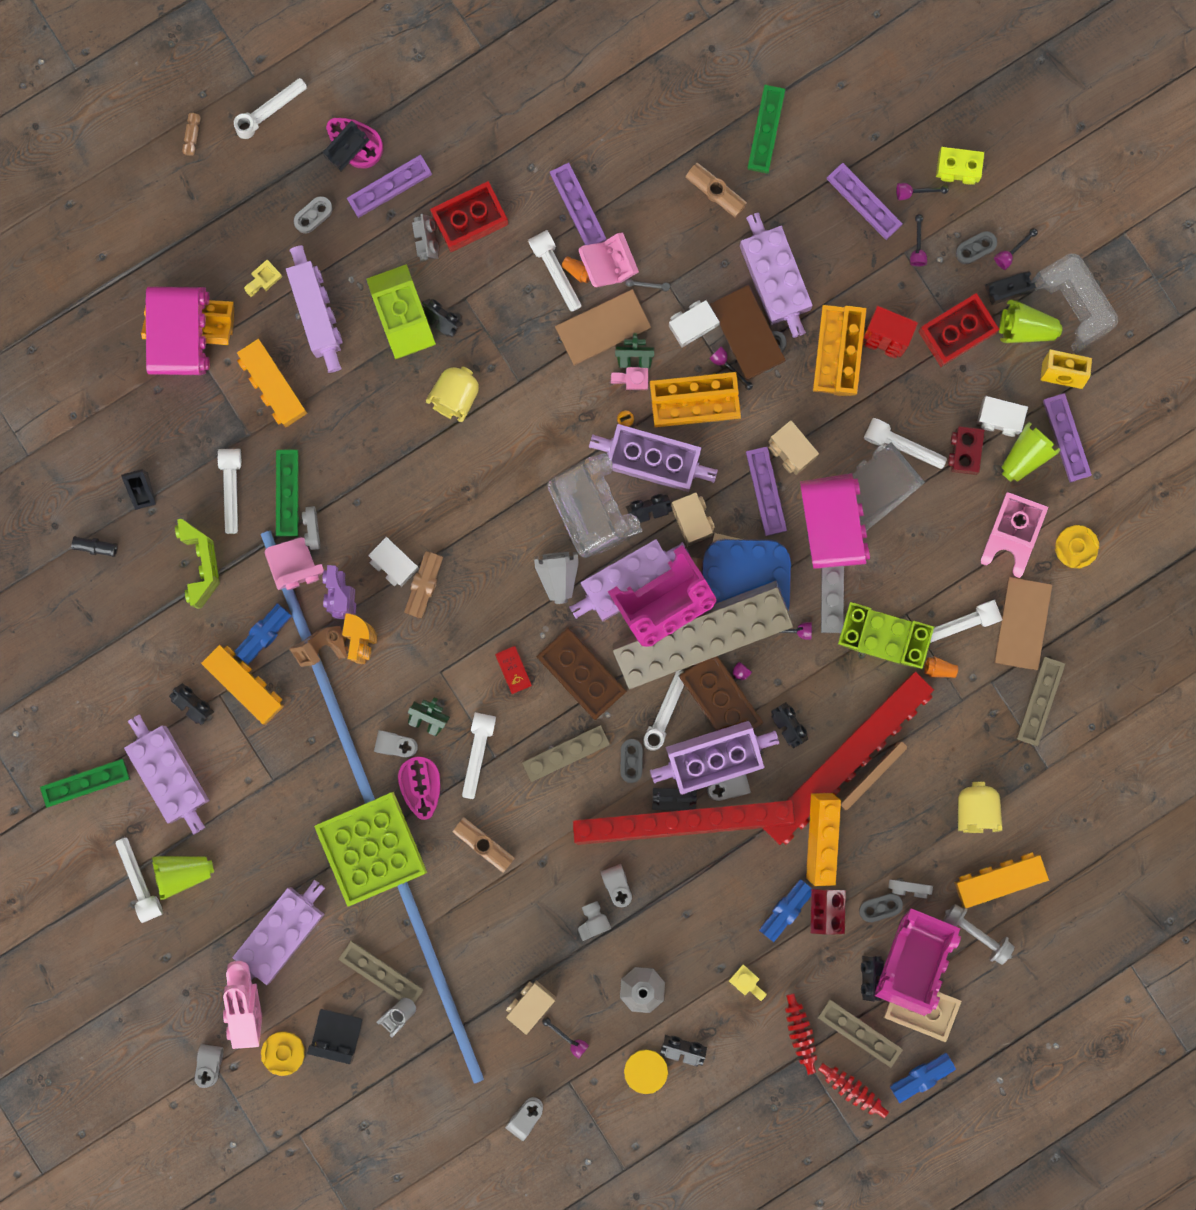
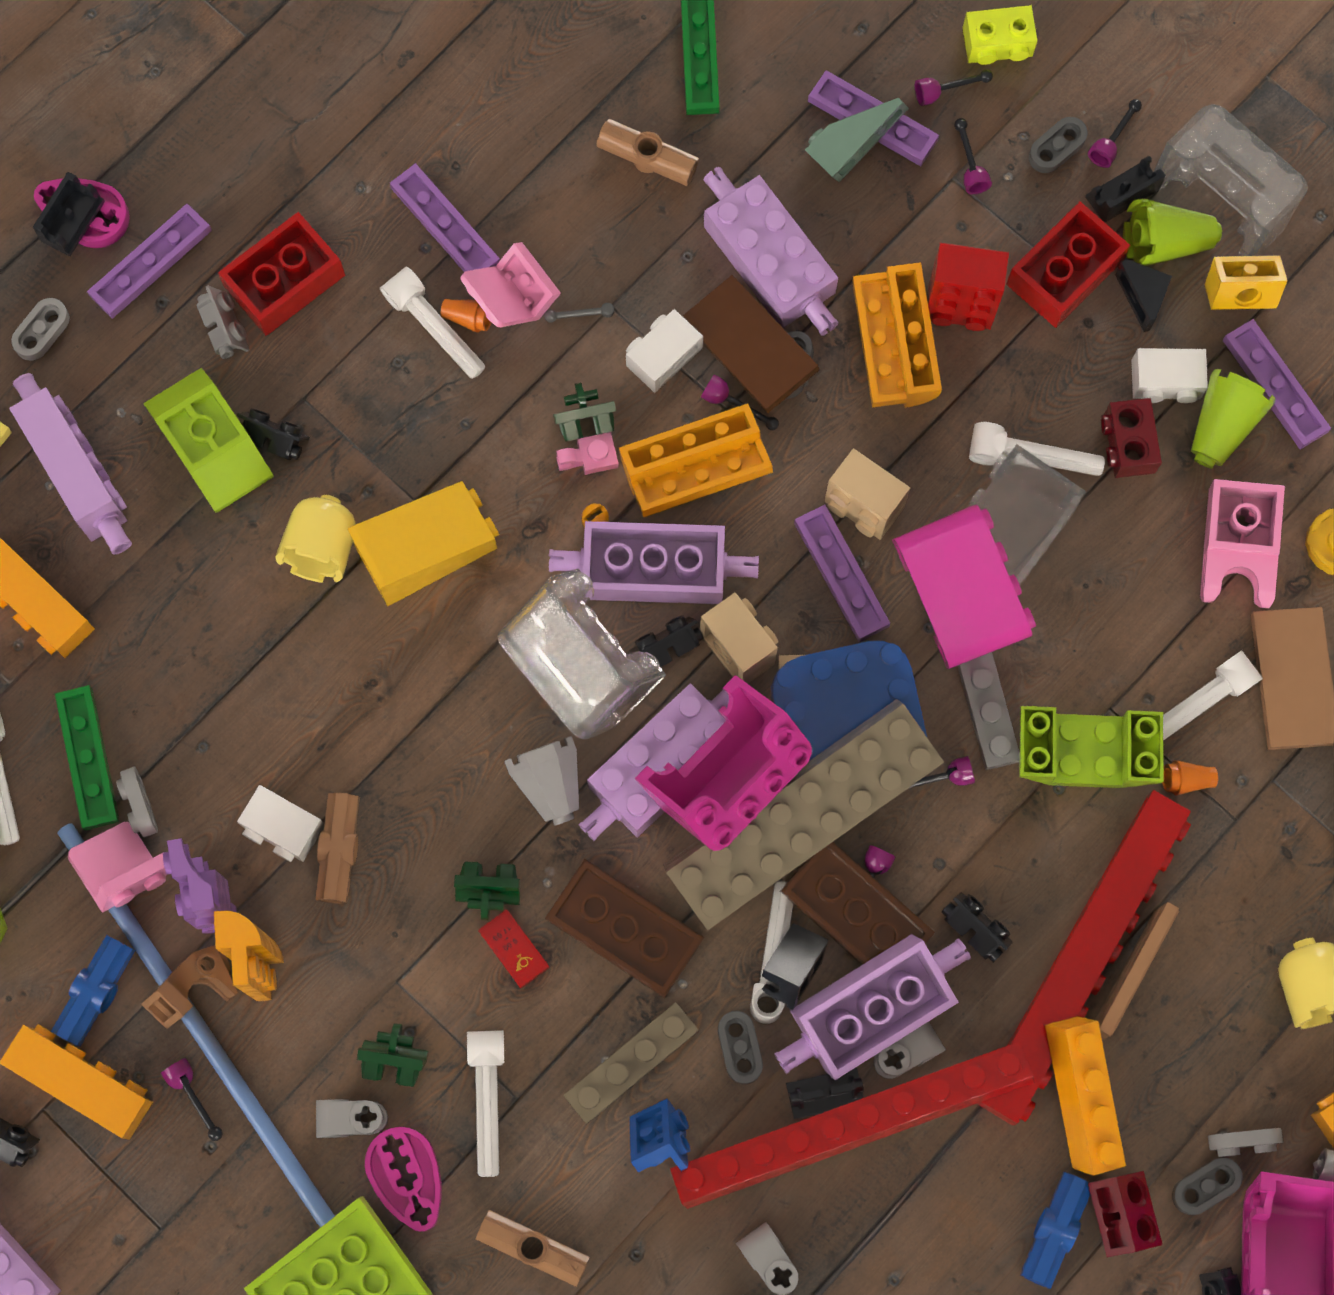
camera: 20 degrees left, 10 degrees down
(303, 696) = (179, 1077): none -> hinge
(504, 633) = (487, 892): none -> dark green hips
(518, 409) = (423, 540): none -> yellow slope
(570, 800) = (657, 1135): none -> blue bracket
(602, 327) = (525, 390): medium nougat tile -> none
(674, 721) = (794, 965): none -> black hinge
(840, 216) = (850, 139): none -> sand green slope
(1002, 358) = (1143, 289): none -> black slope

